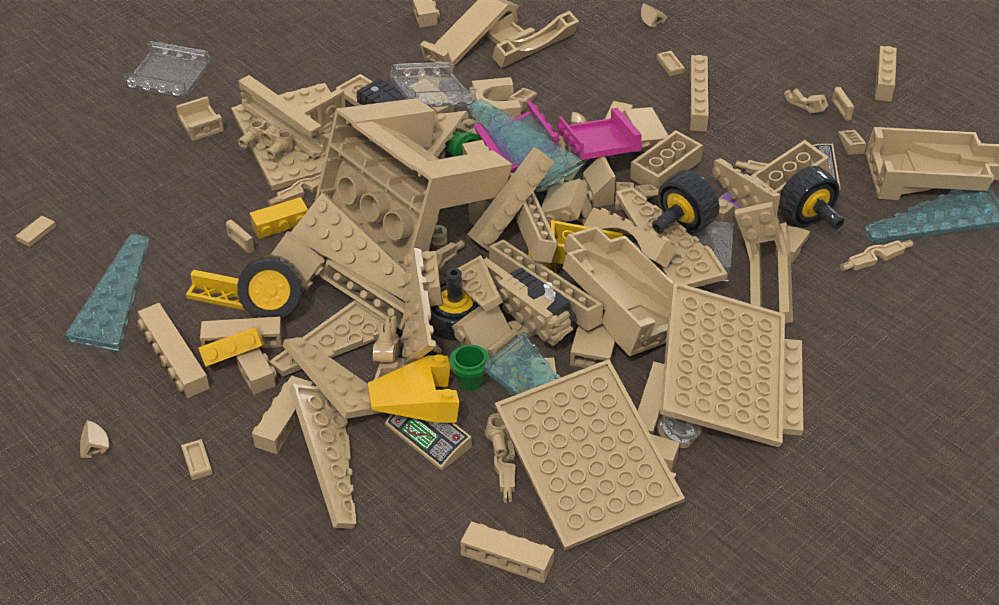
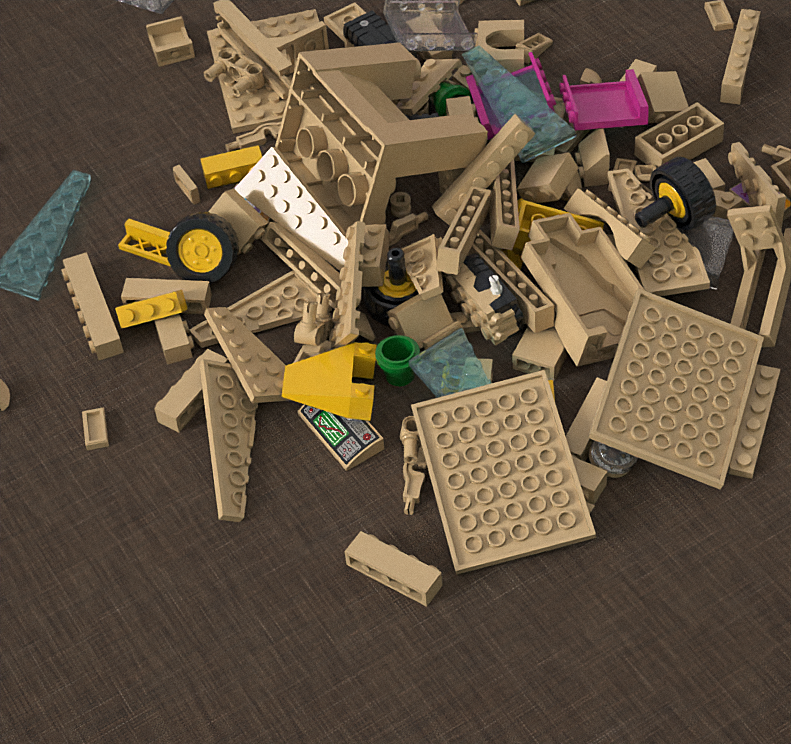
camera: 15 degrees right, 5 degrees up
(507, 249) = (463, 230): none -> tan brick

